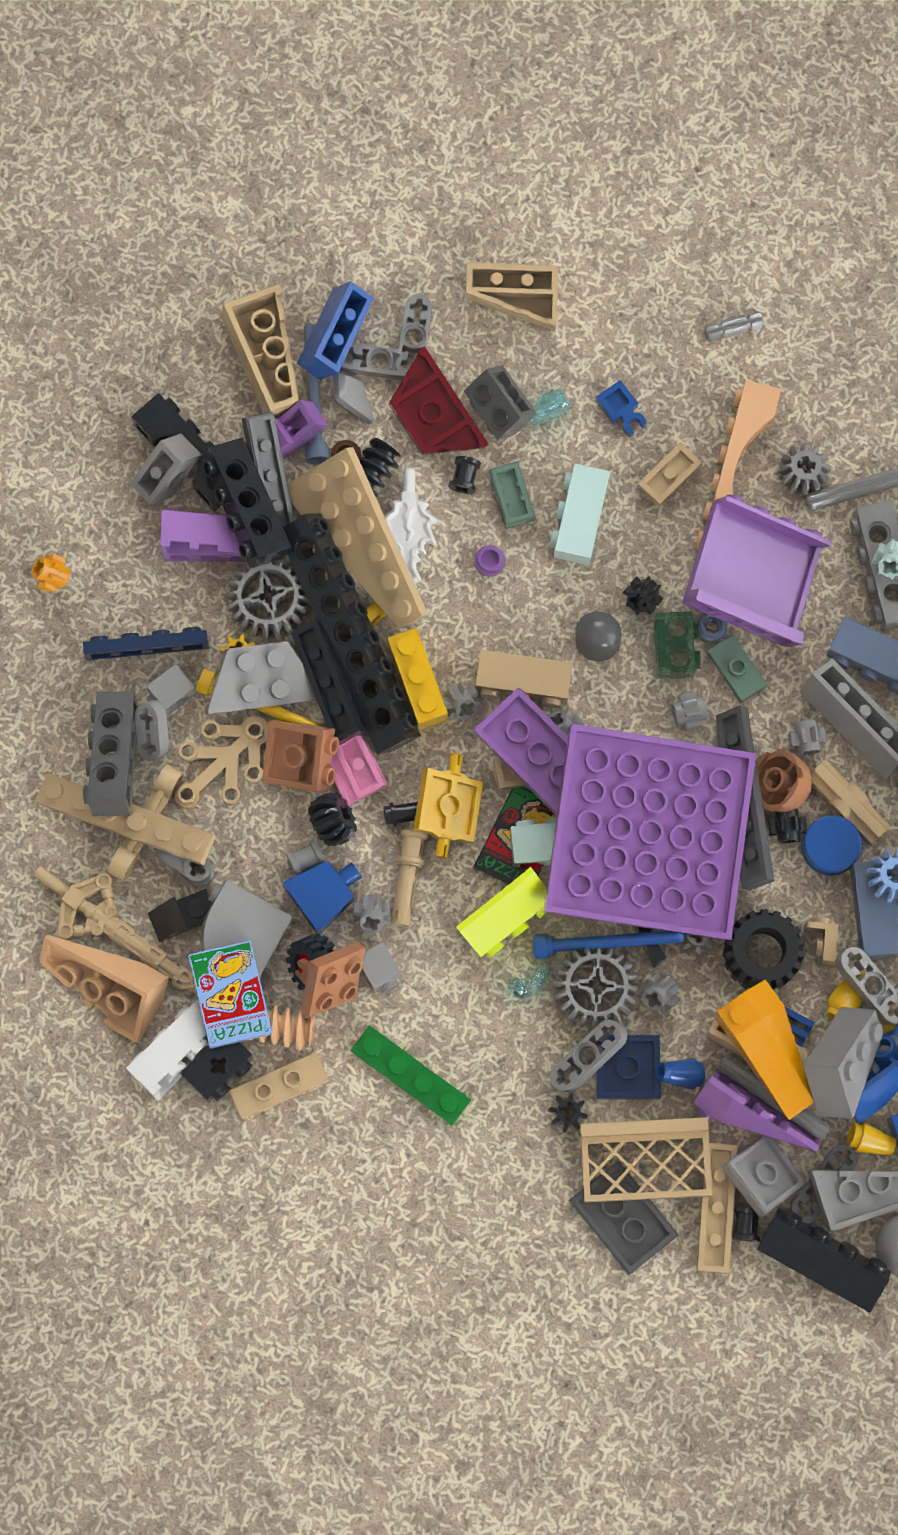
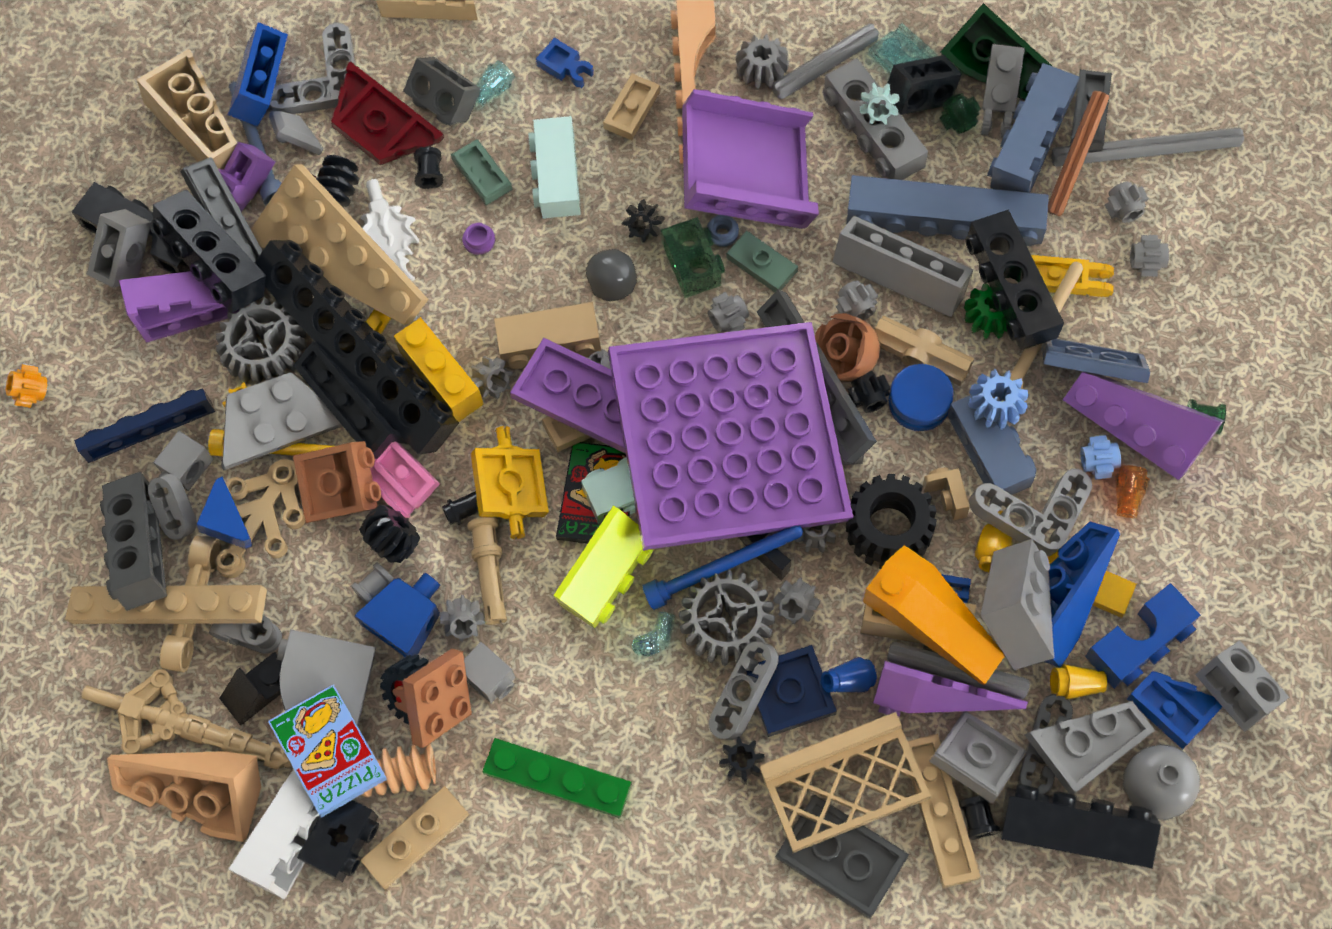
camera: 10 degrees left, 10 degrees down
(194, 758) = (221, 517): none -> blue slope

